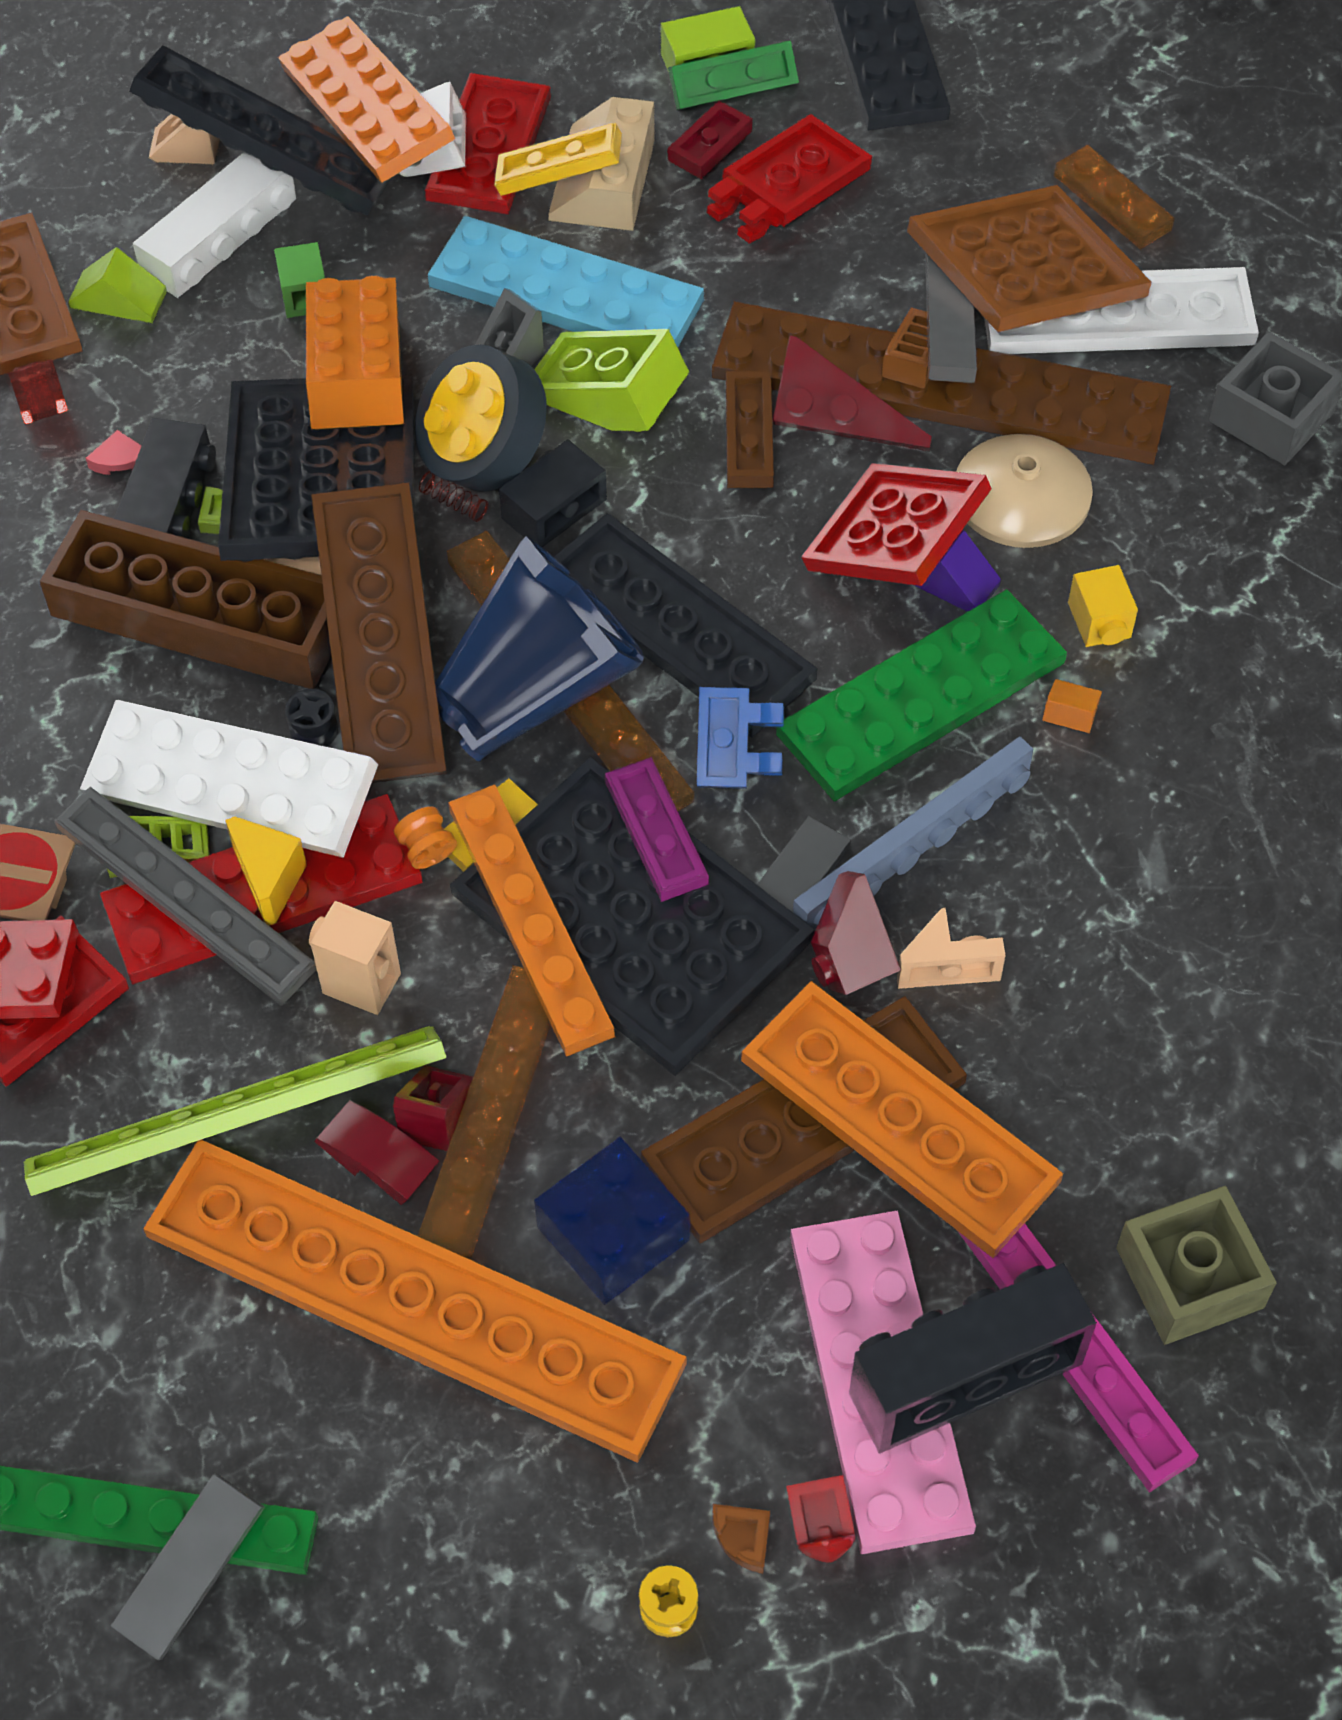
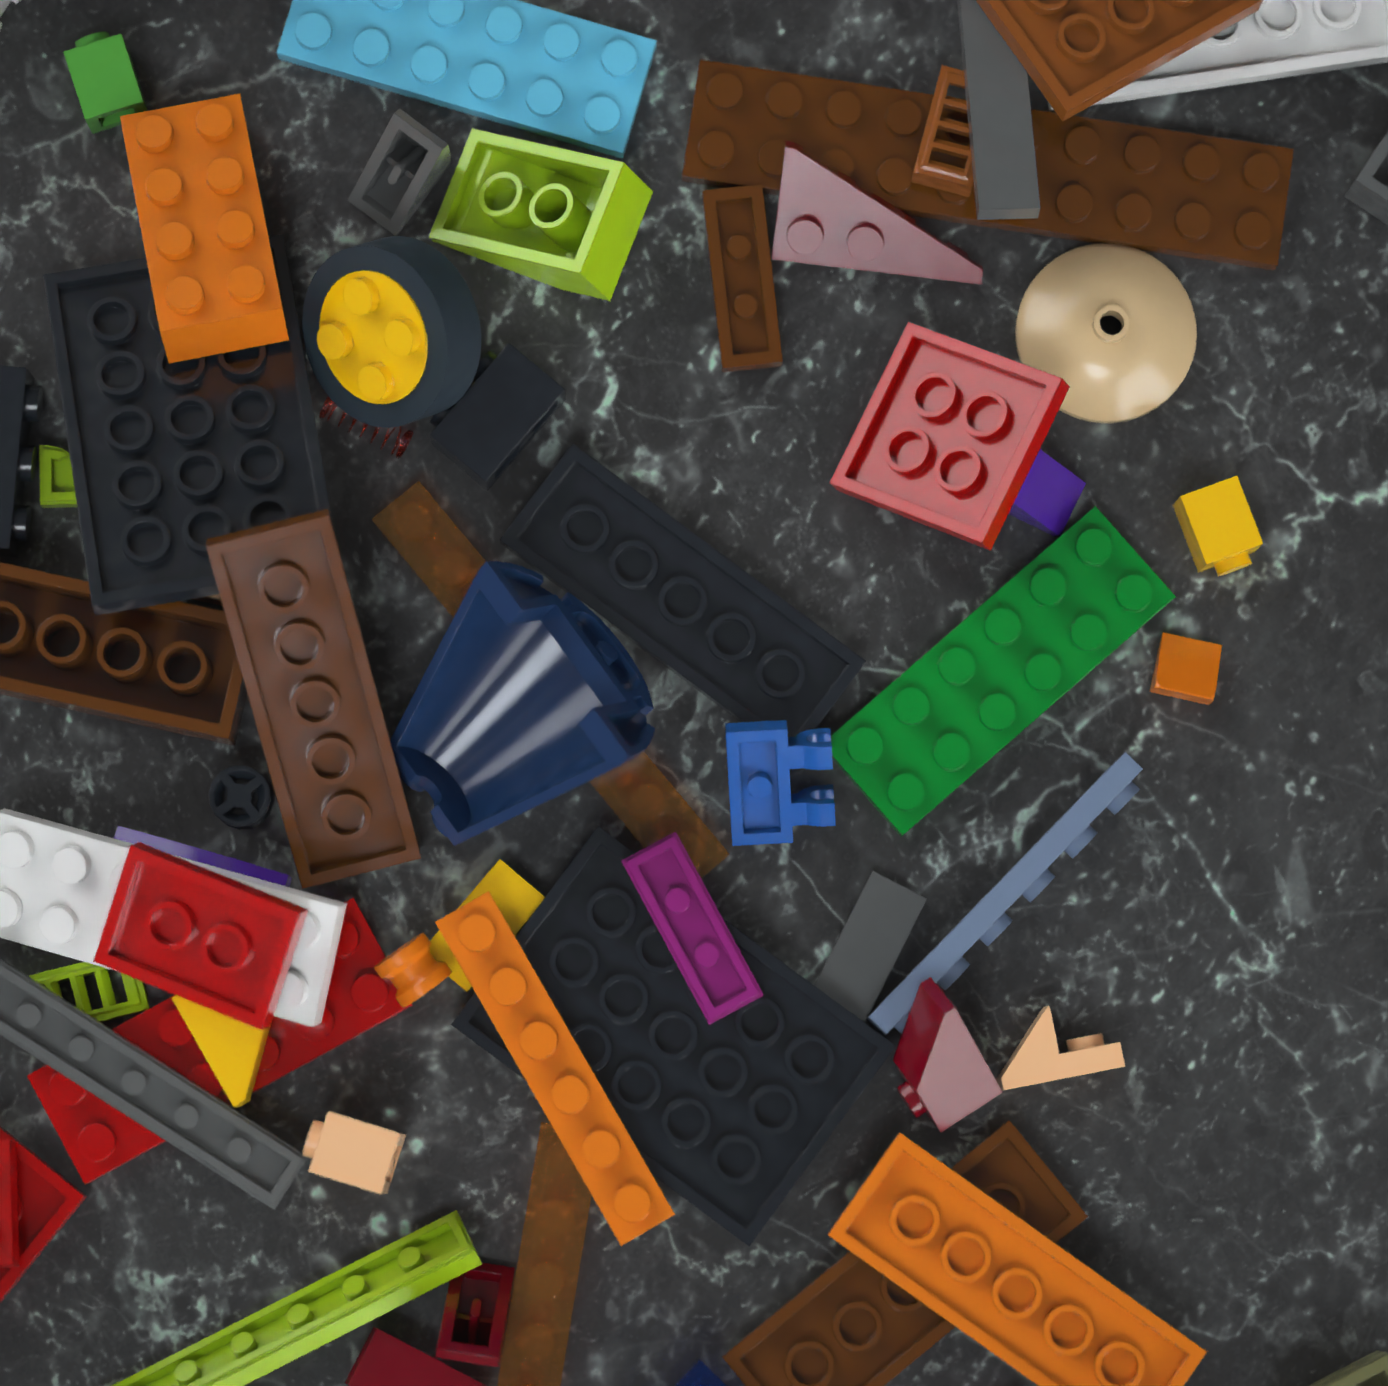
camera: 15 degrees left, 25 degrees up
(256, 768) = (200, 935): none -> red plate

